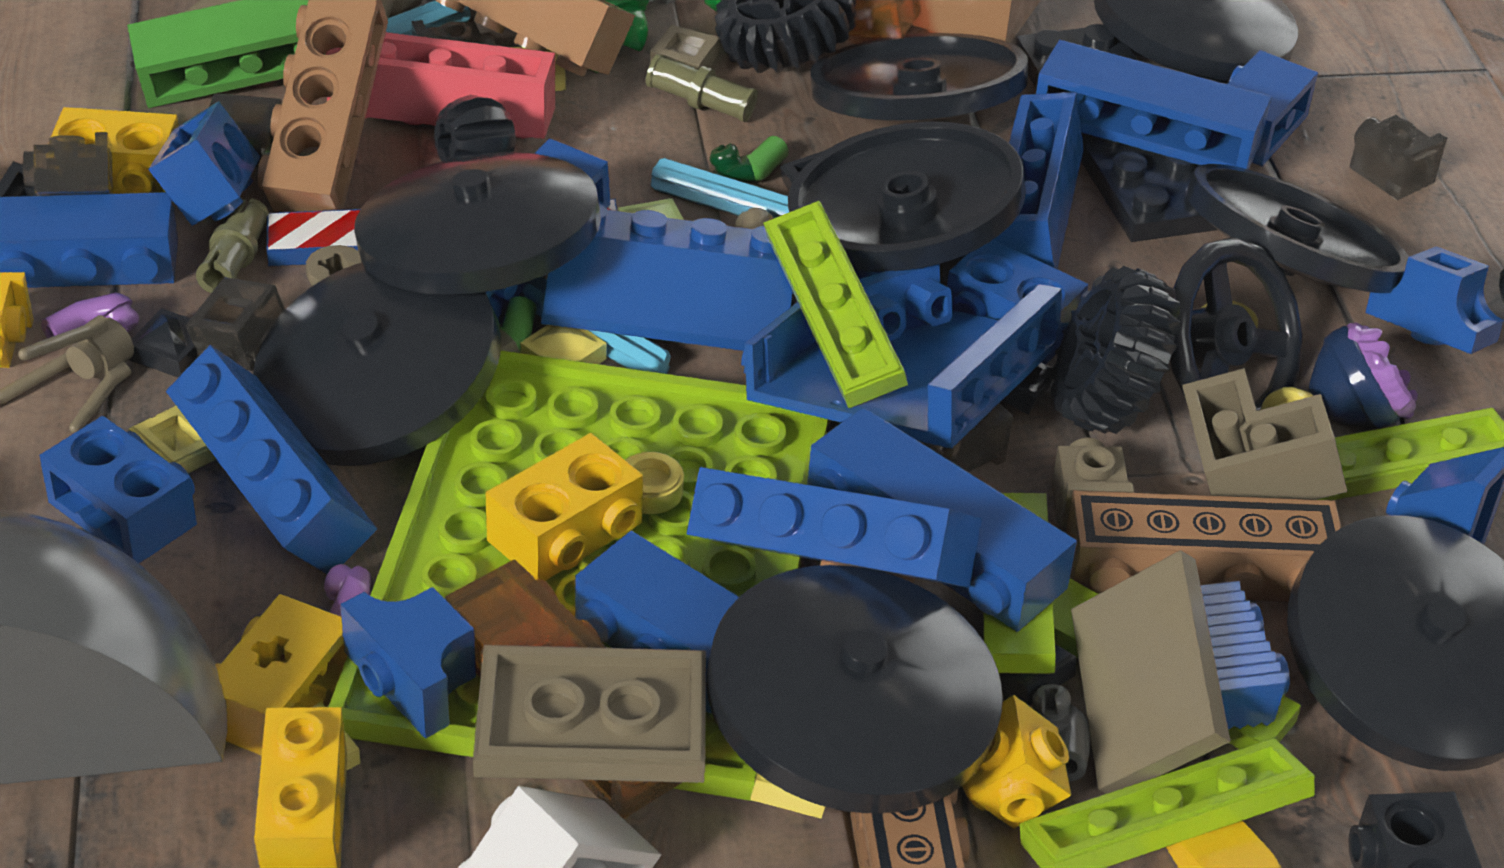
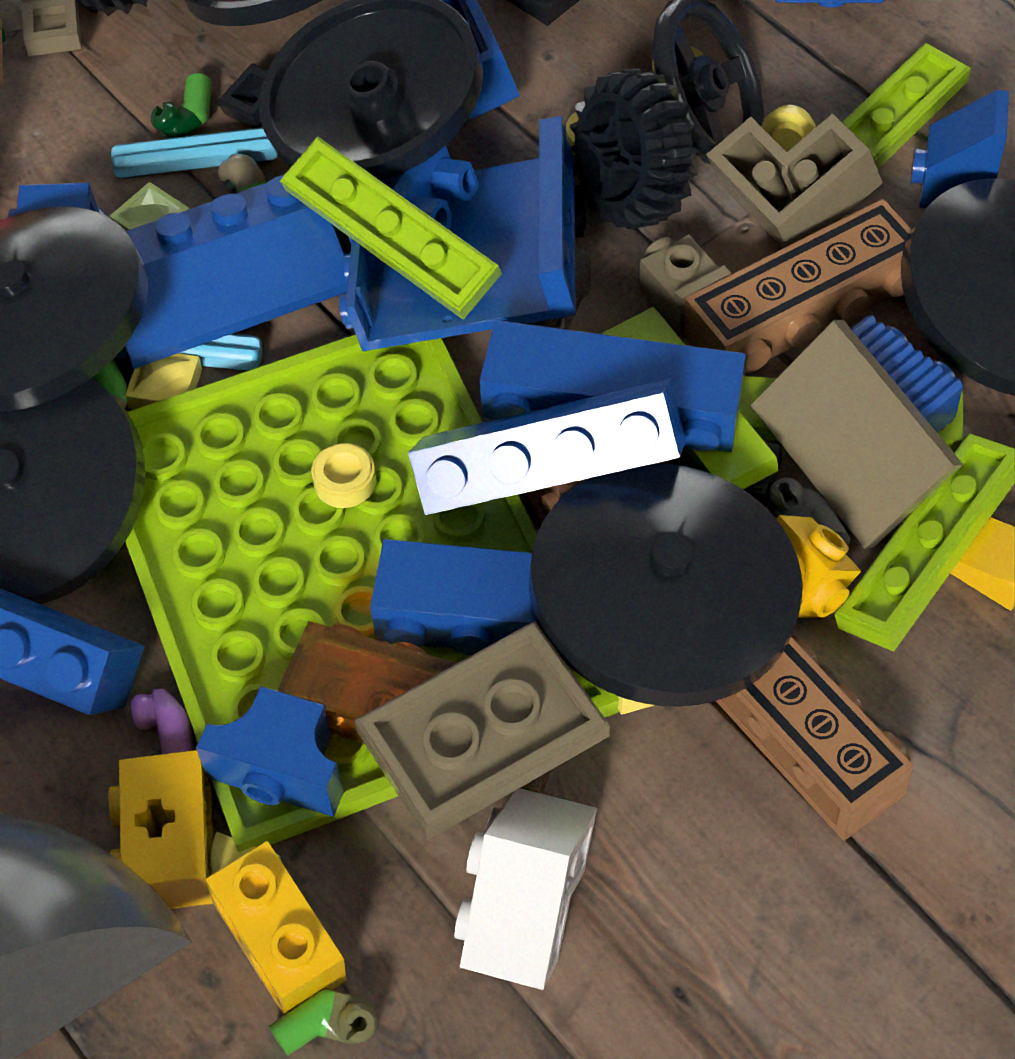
camera: 25 degrees left, 15 degrees up
(564, 507) = (288, 540): yellow brick -> none
(701, 88) = (91, 55): olive pin -> none
(998, 277) = (504, 128): blue brick -> none
(1359, 380) = (821, 70): dark blue hair -> none

